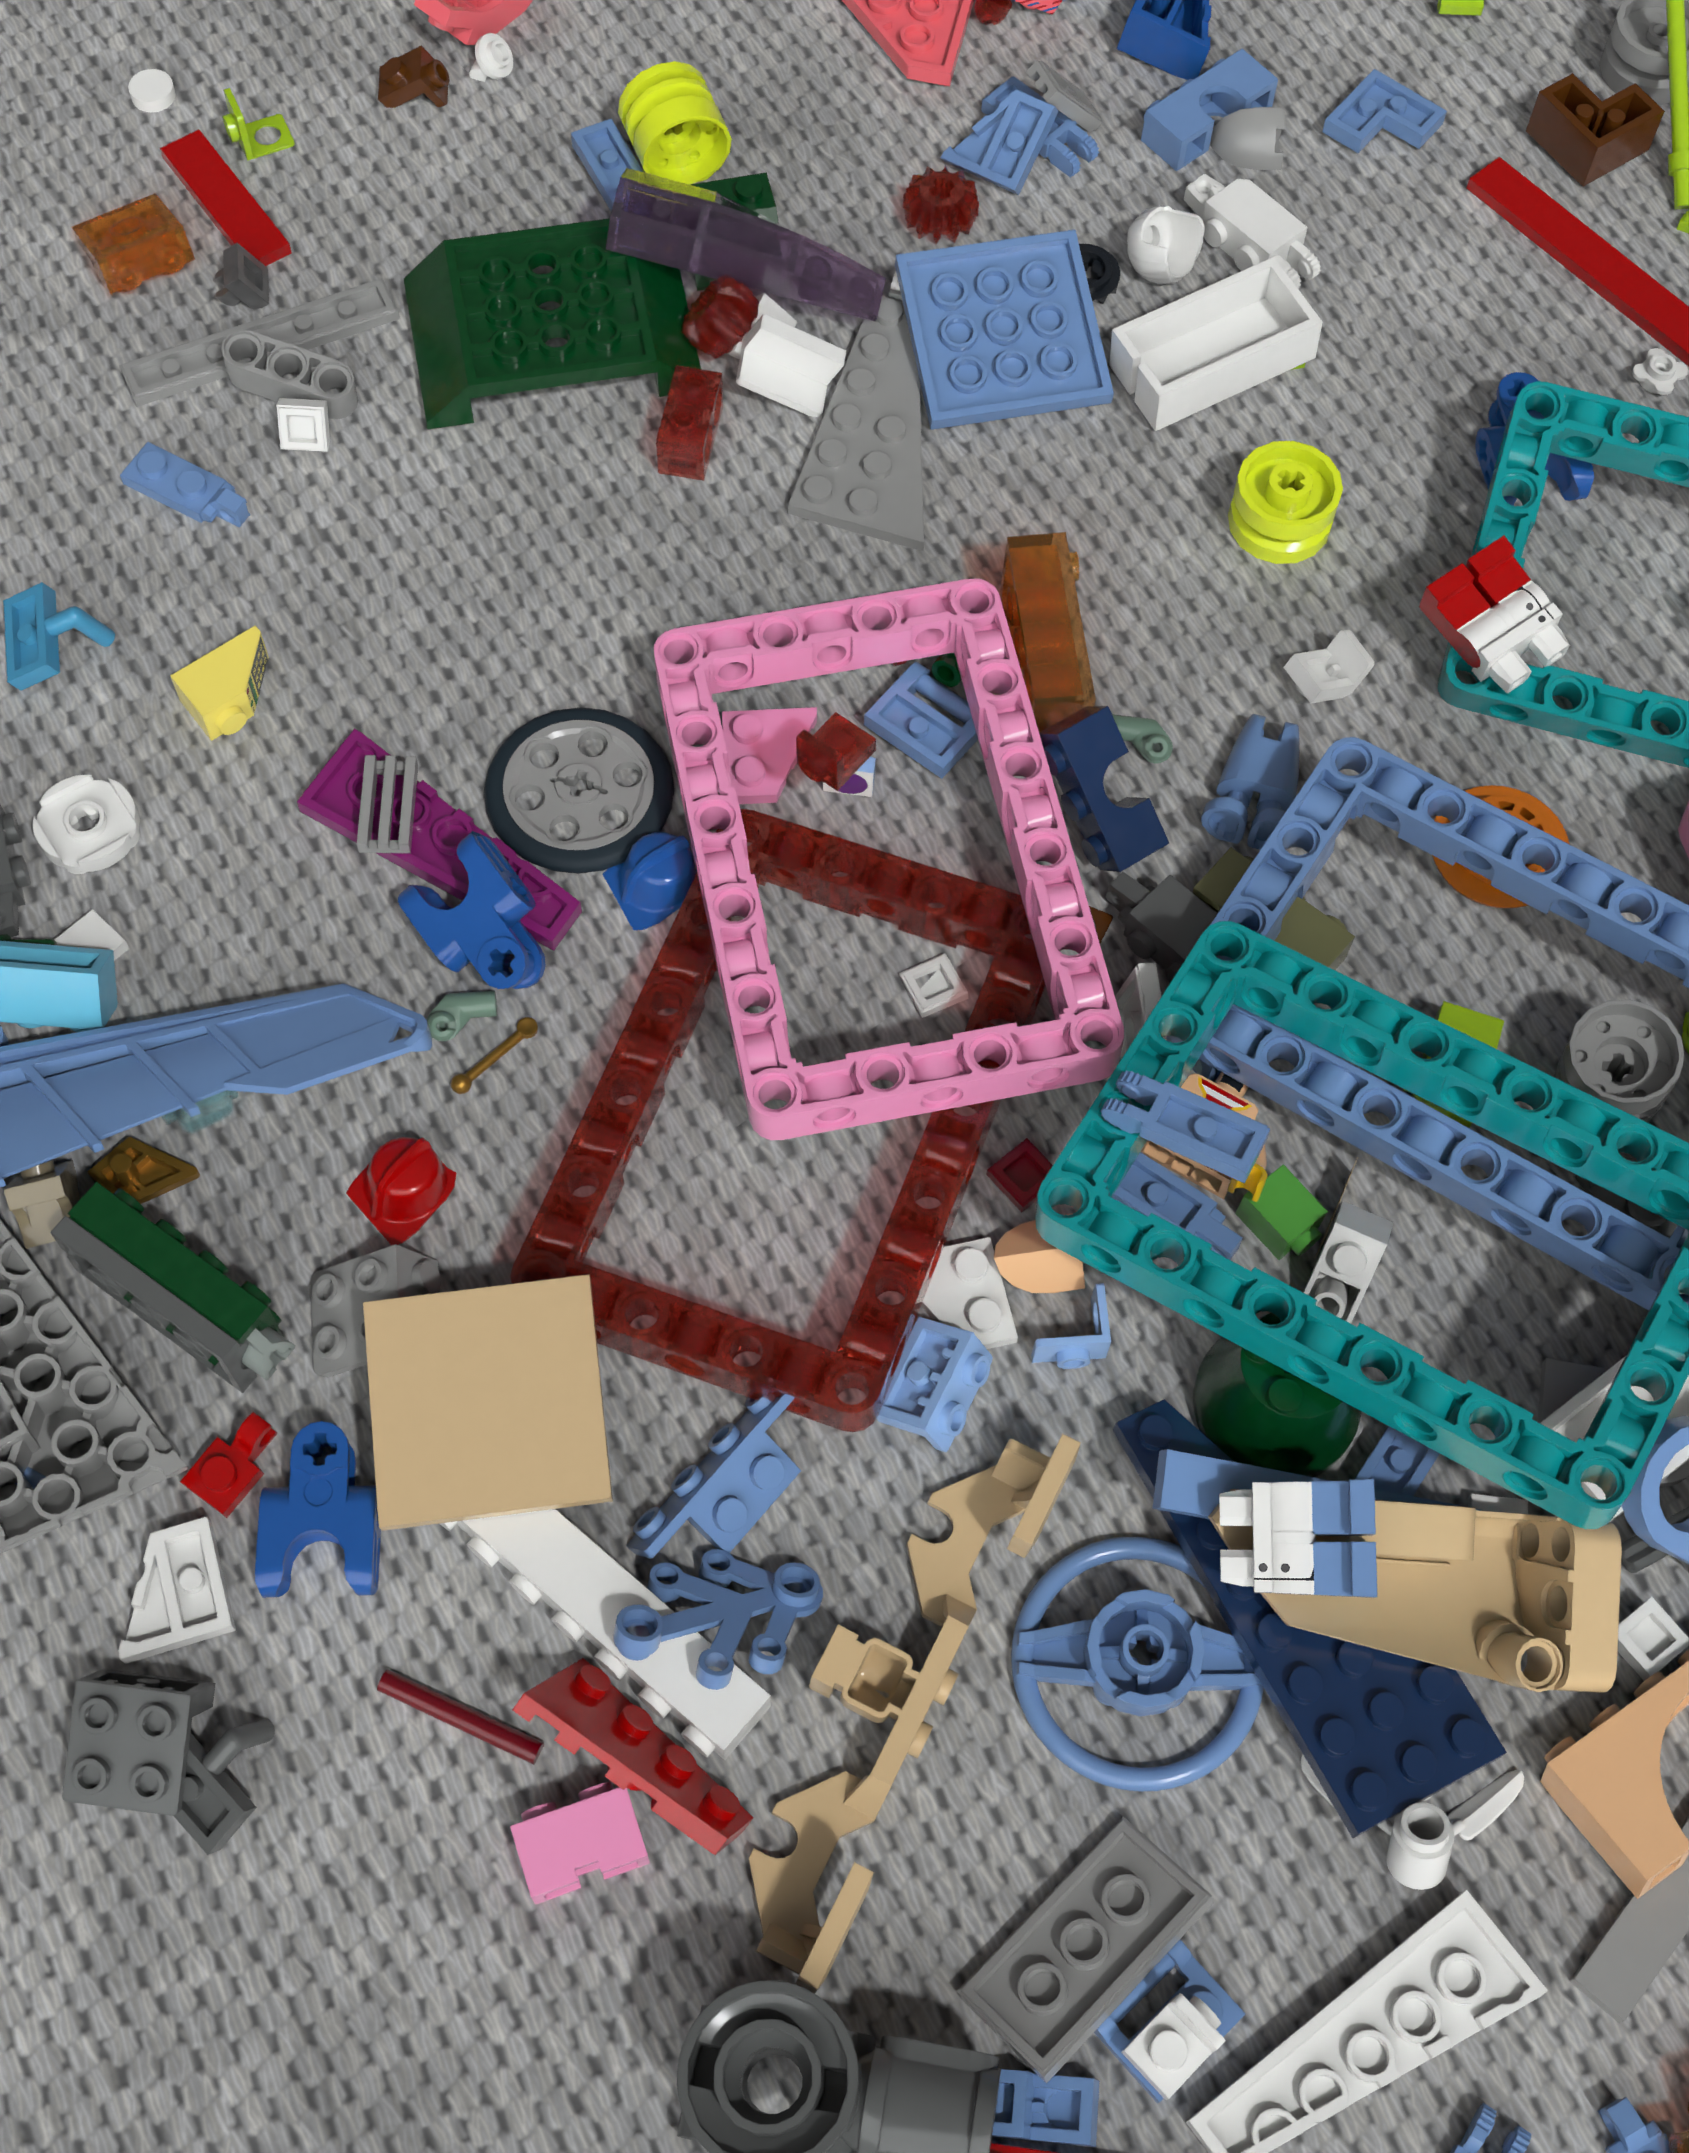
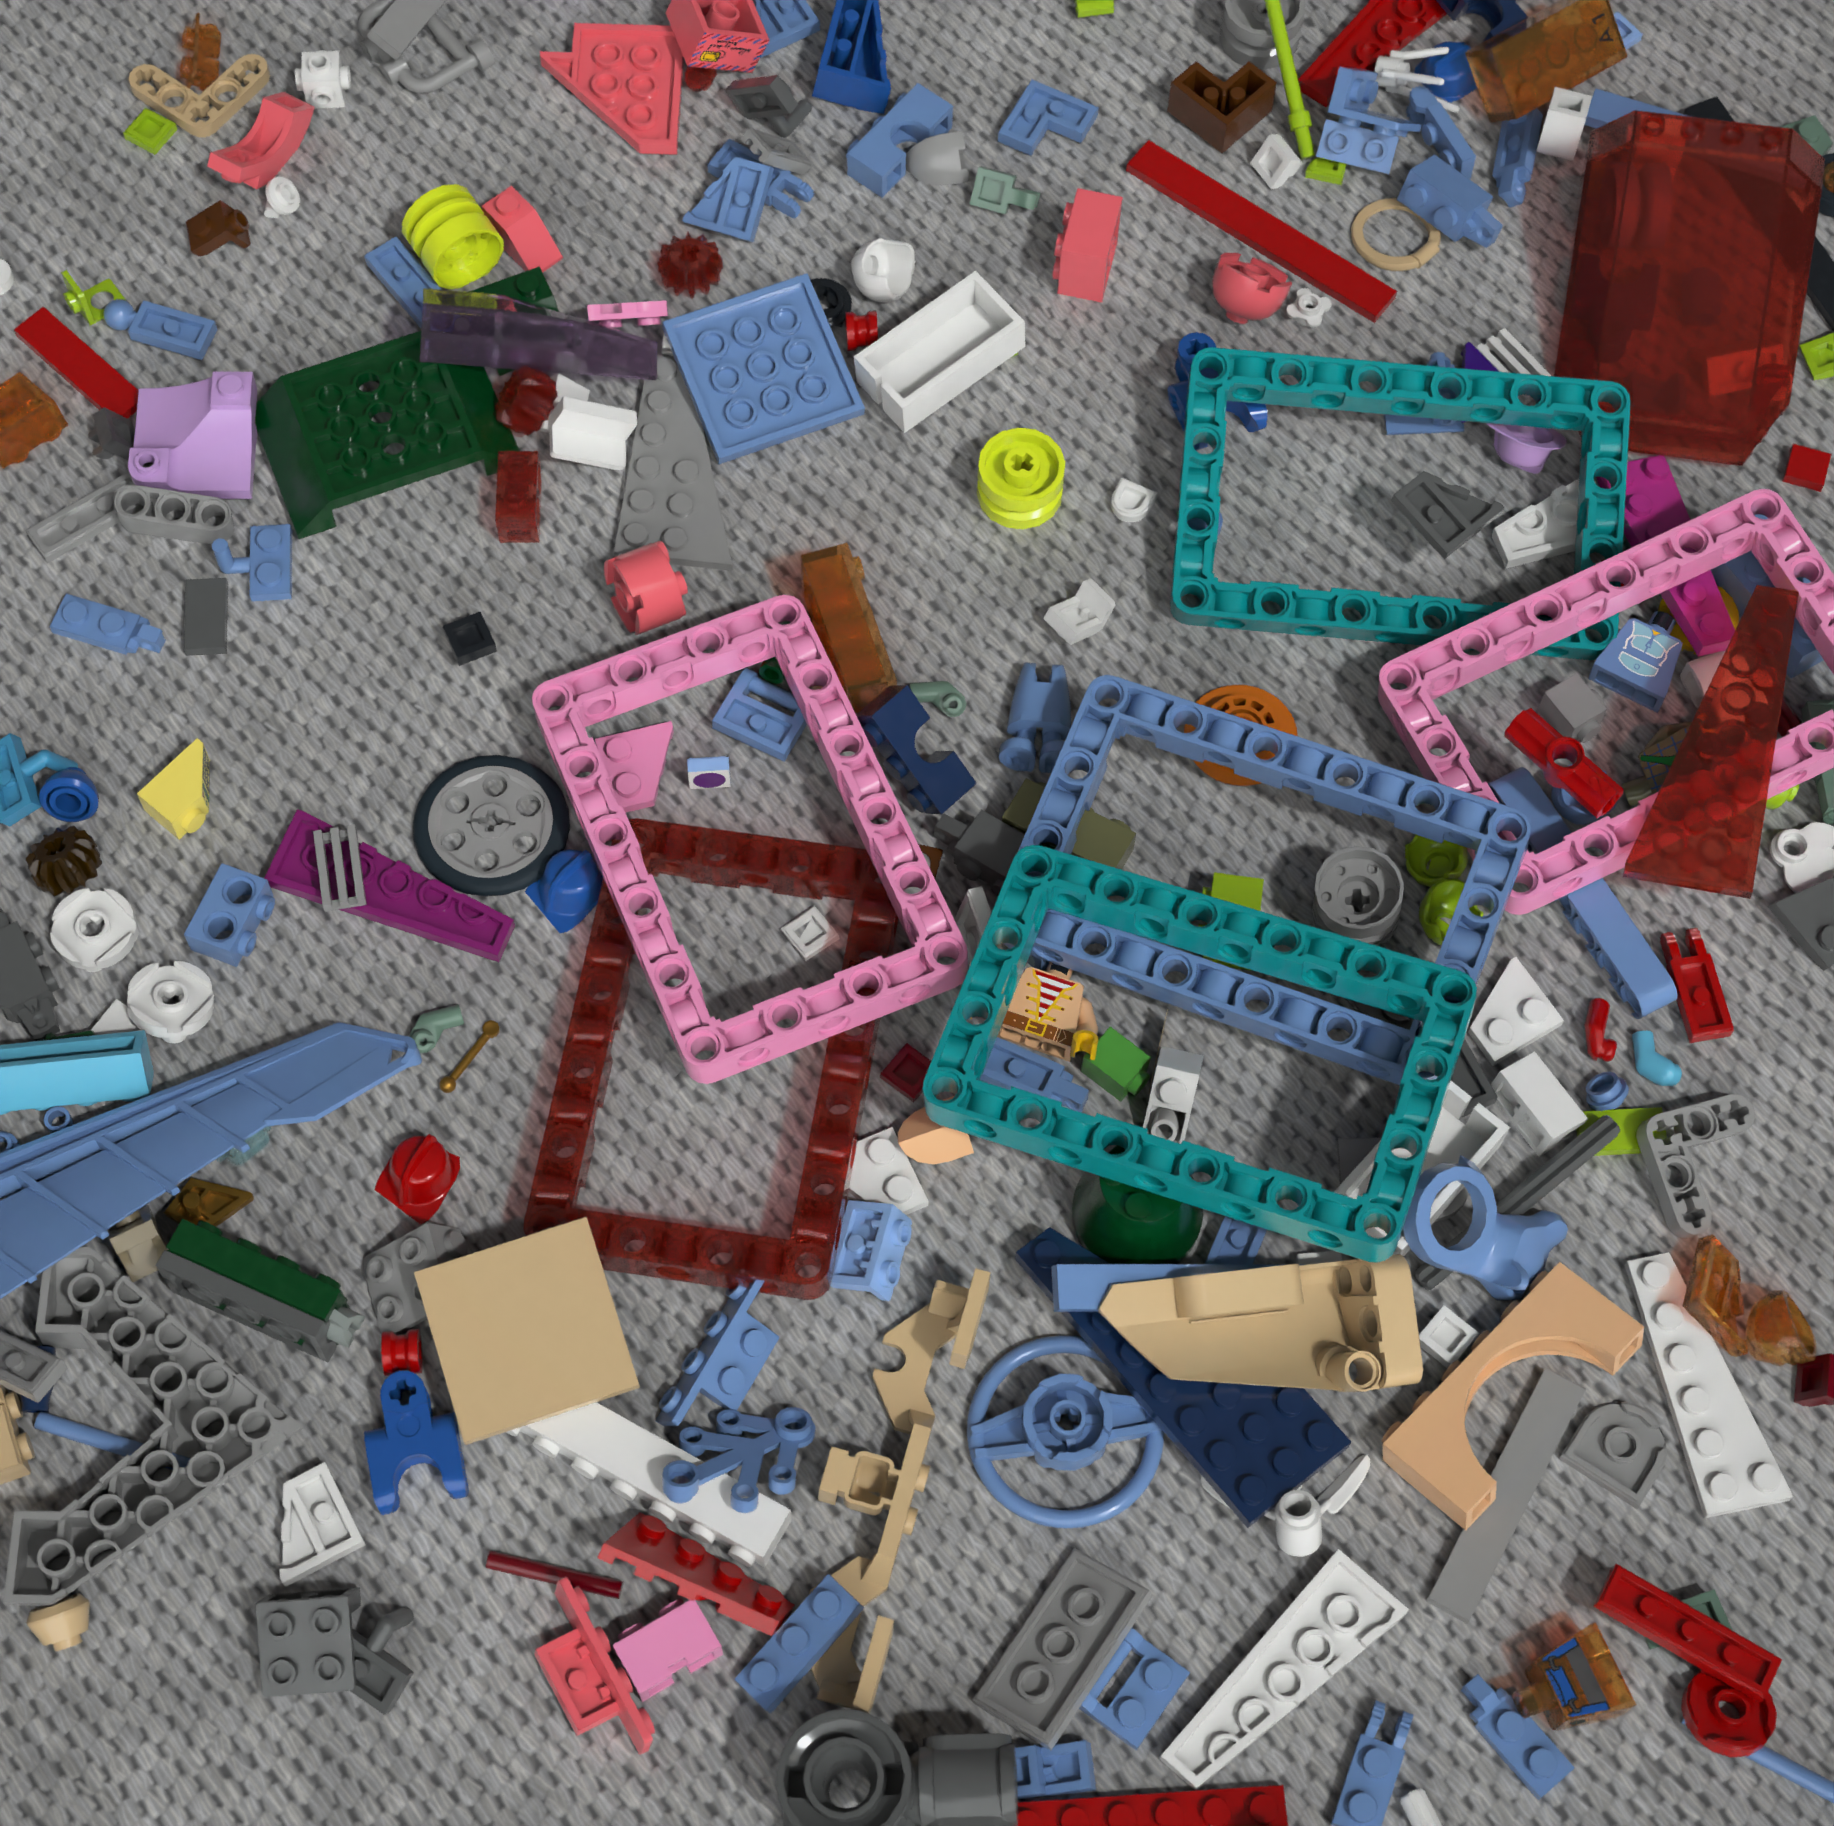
camera: 10 degrees left, 0 degrees up
(69, 738) = (64, 860): none -> dark brown gear
(94, 666) = (69, 795): none -> blue brick
(154, 946) = (176, 1020): none -> white plate
(227, 1472) = (331, 1425): red plate -> none
(237, 831) = (220, 913): none -> medium blue brick
(301, 495) = (206, 616): none -> dark grey tile
(303, 424) = (194, 555): white tile -> none
(326, 173) = (162, 327): none -> medium blue plate
(332, 1398) = (401, 1352): none -> red wheel
(338, 293) = (198, 437): none -> lavender slope
(387, 449) = (268, 562): none -> medium blue plate
(468, 1858) = (585, 1675): none -> coral bracket
(485, 924) = (442, 951): blue piece -> none
(598, 570) = (469, 638): none -> black tile
(748, 1871) = (799, 1643): none -> medium blue plate
(755, 134) = (522, 231): none -> coral slope
(817, 548) = (646, 587): none -> coral brick
(834, 751) = (695, 762): clear red bracket -> none
(878, 244) = (612, 314): none -> bright pink wing
(1066, 37) = (770, 99): none -> dark grey plate
(1078, 1350) = (977, 1202): light blue bracket -> none
(1124, 305) = (861, 329): none -> red wheel
(1175, 2043) = (1140, 1701): white bracket -> none
(1188, 1125) = (1027, 1013): medium blue hinge -> none
(1251, 226) = (953, 241): white hinge -> none
(1284, 1538) = (1155, 1313): hips -> none
(1312, 181) = (996, 191): none -> sand green plate
(1410, 254) = (1087, 244): none -> coral brick
(1412, 553) = (1132, 501): none -> white tile
(1495, 616) = (1203, 550): hips -> none
(1592, 336) = (1248, 289): none -> coral cylinder
(1646, 203) = (1275, 161): none -> white tile

